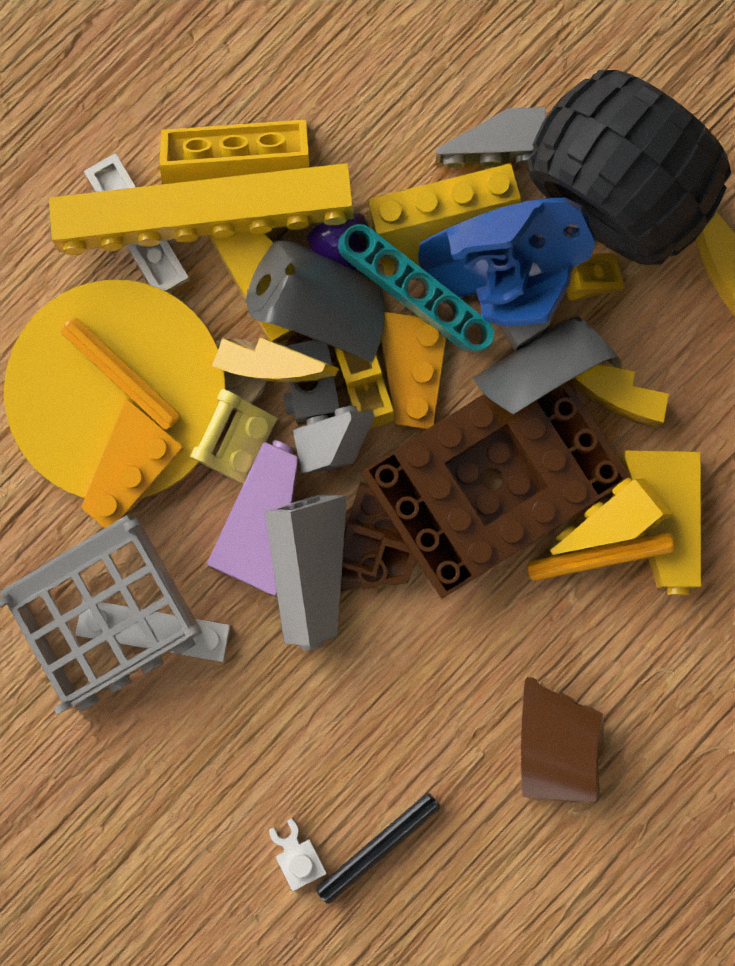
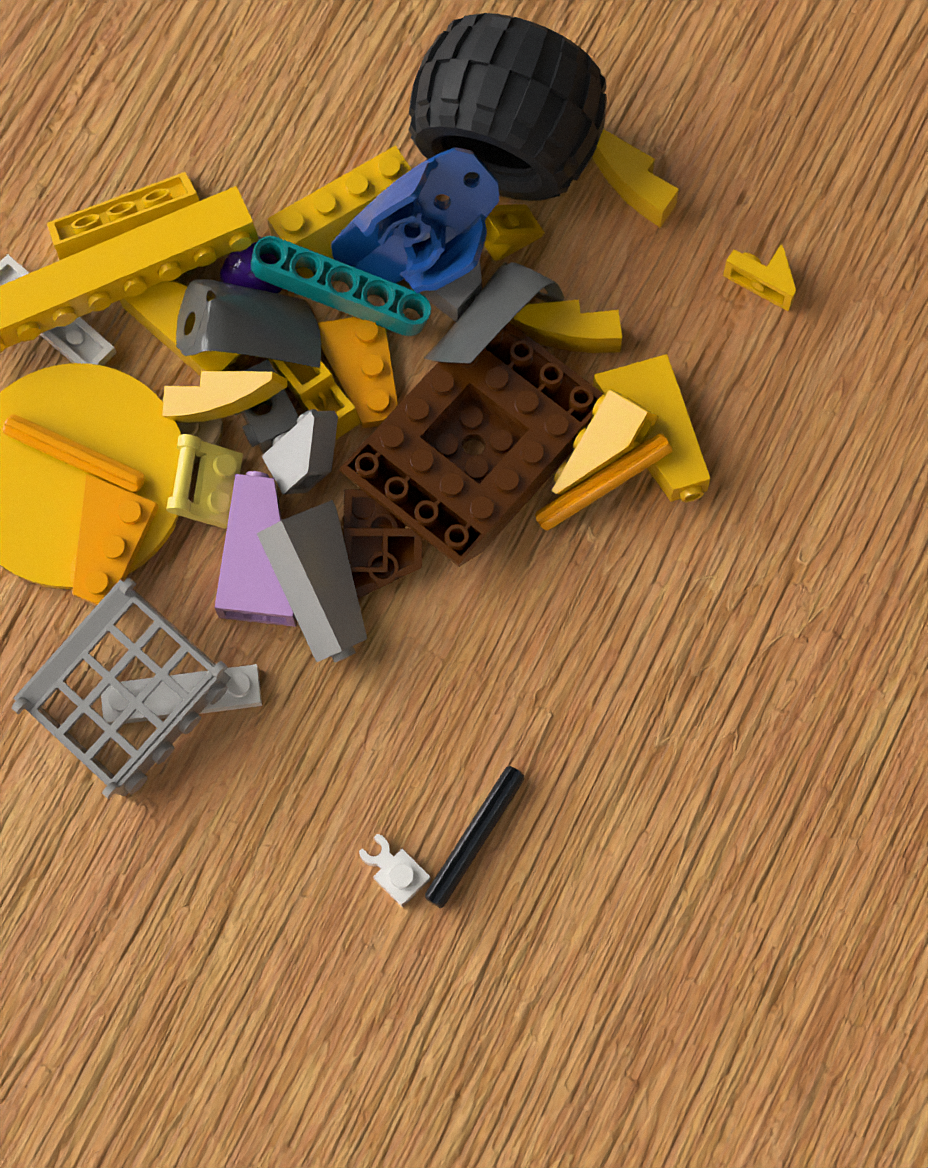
camera: 10 degrees left, 10 degrees down
(495, 141) = (371, 133): light grey slope -> none
(559, 746) = (623, 676): reddish brown slope -> none

